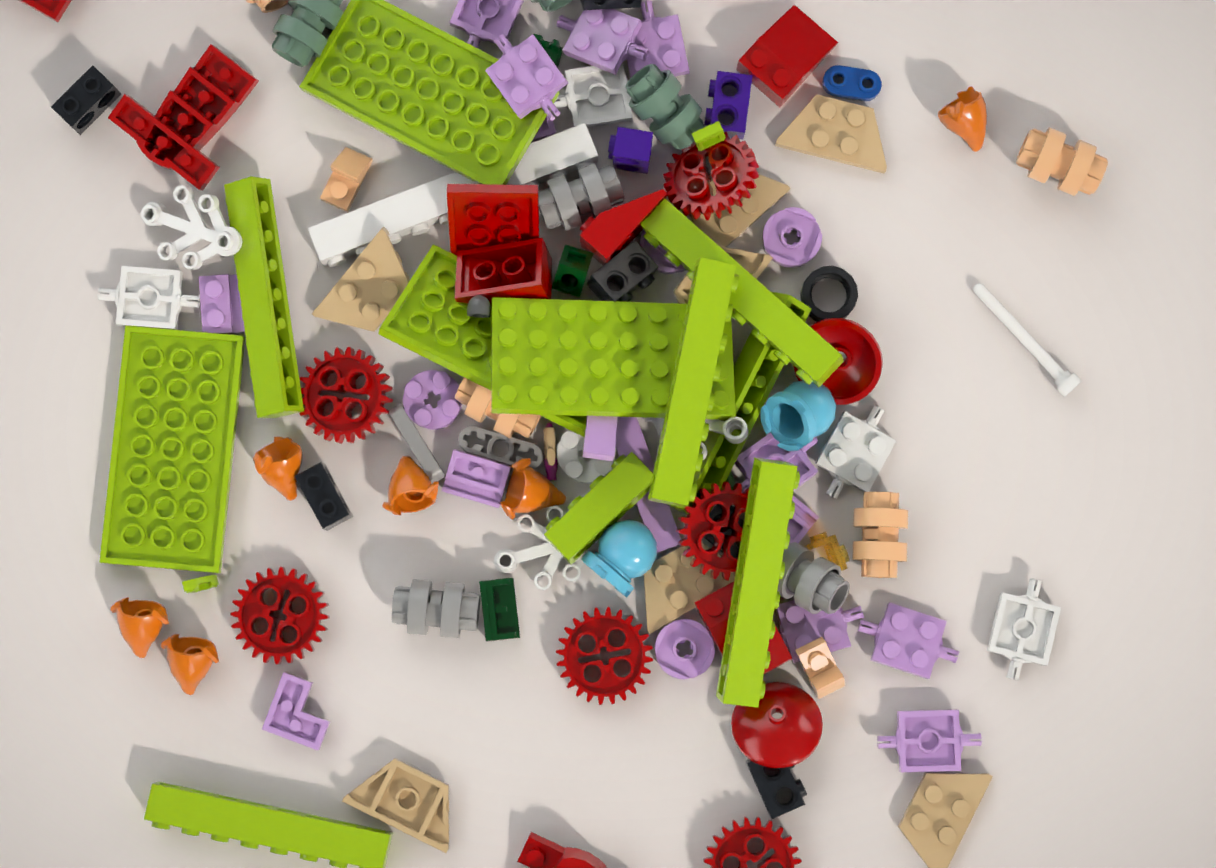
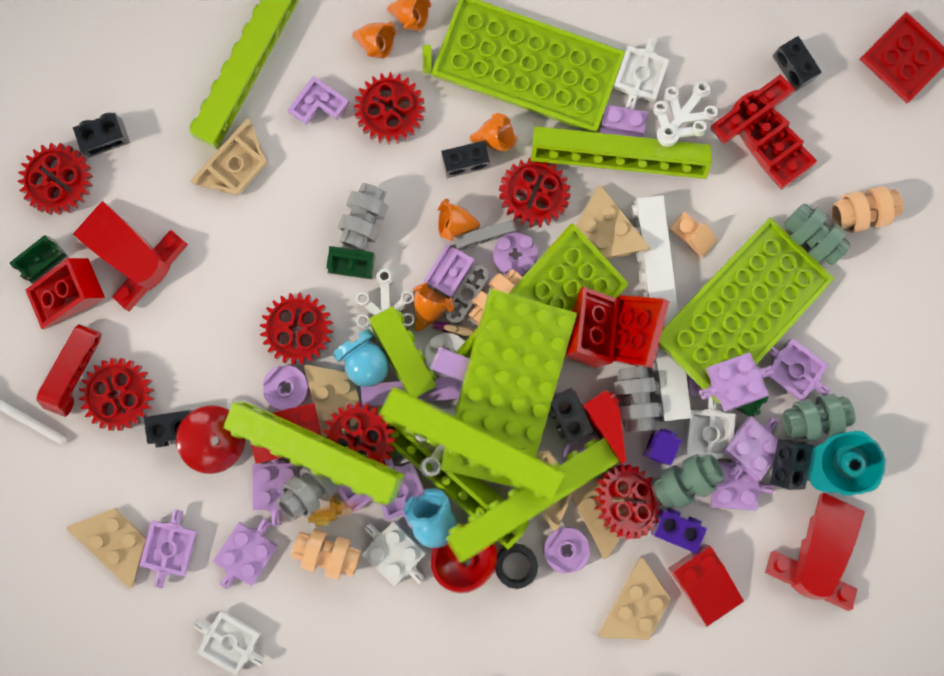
camera: 100 degrees right, 0 degrees up
(479, 307) = (572, 302): dark grey hinge -> none
(572, 270) = (583, 379): dark green brick -> none
(708, 136) = (658, 507): lime tile -> none
(820, 667) = (243, 482): light nougat slope -> none
(852, 83) = (671, 628): blue plate -> none

